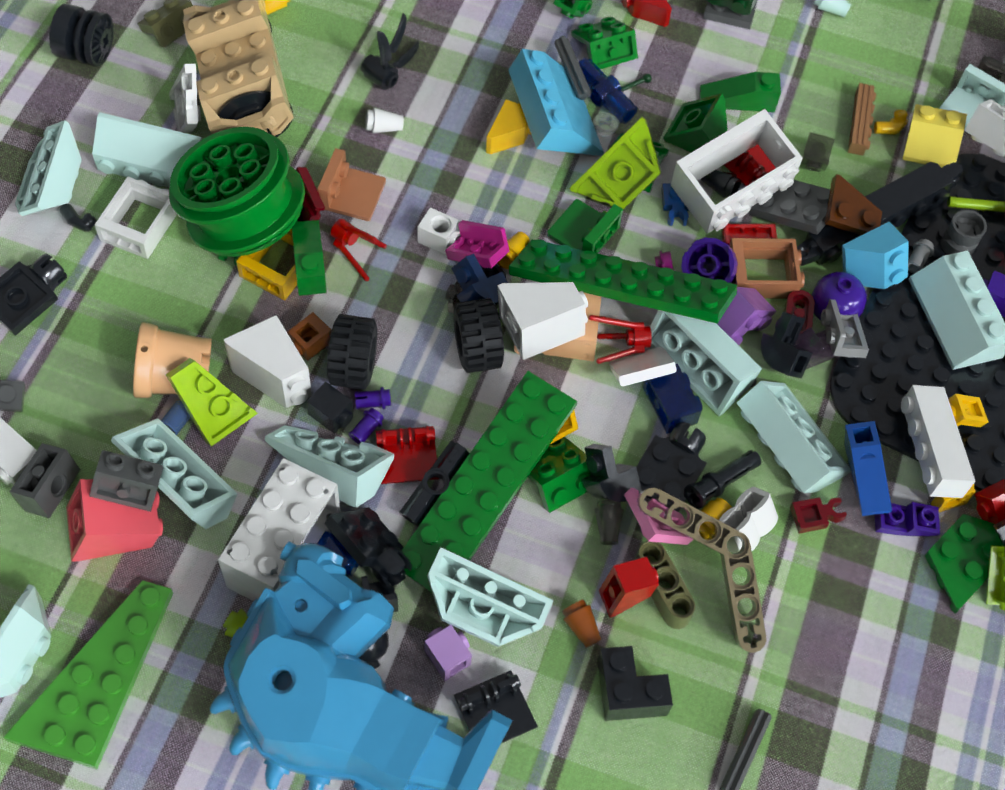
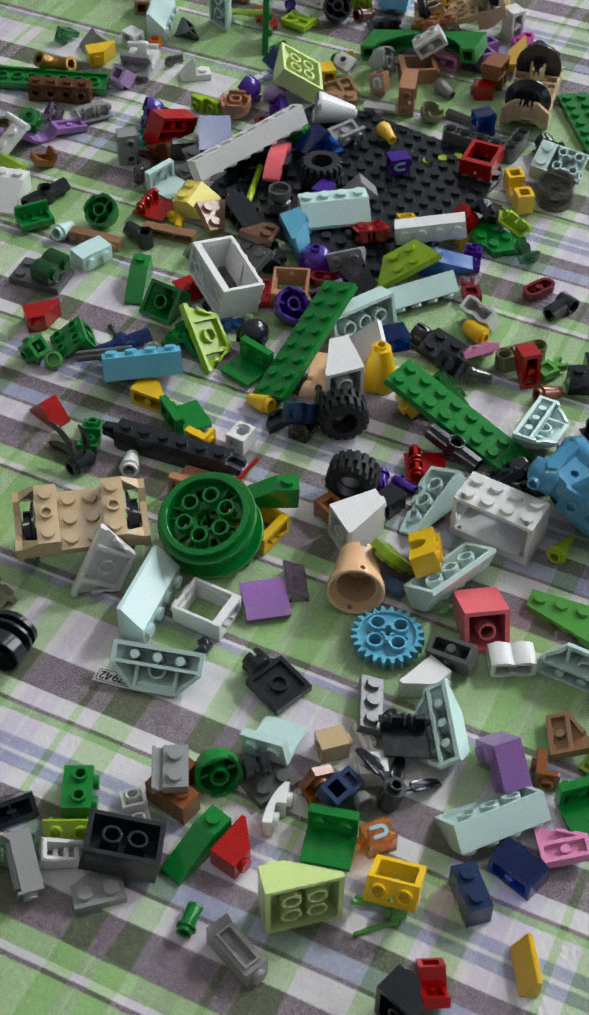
camera: 80 degrees left, 15 degrees down
(44, 556) = (511, 659): none -> white brick
(61, 408) = (387, 637): none -> medium azure gear
(126, 480) = (469, 580): dark grey bracket -> none
(156, 277) = (265, 600): none -> medium lavender slope
(187, 307) = (295, 581): none -> clear purple slope
(191, 440) = (425, 552): none -> yellow arch
(407, 160) = (173, 447): none -> black hinge
(430, 187) = (209, 436): none -> yellow bracket
(440, 80) = (94, 430): none -> green slope
(467, 35) = (51, 411): none -> red slope
(471, 164) = (183, 415): none -> green bracket
(483, 240) = (263, 411): dark pink bracket -> none
(563, 24) = (53, 360): none -> bright green plate
(590, 385) = (377, 367): none -> yellow cone
(642, 627) = (552, 369): none -> bright green plate
(647, 229) = (254, 329): none -> black cap
(664, 260) = (279, 332): magenta plate -> none
(715, 483) = (452, 326): black pin -> none
(729, 561) = (517, 314): dark tan beam -> none
(785, 36) = (91, 254): none -> light aqua brick
(812, 658) = (563, 304): none -> black piece
(824, 39) = (81, 234): none -> medium nougat piece
(842, 84) = (142, 235): none -> black piece
(844, 409) = (405, 262): none -> lime wing
(848, 618) = (538, 289): none -> dark red plate
(872, 33) = (101, 211): none -> green cylinder
(904, 158) = (212, 215): none -> medium nougat wing
(912, 90) = (153, 206): none -> red hinge
(925, 363) = (365, 230): none -> red hinge
(937, 593) = (523, 252): none -> clear green bracket

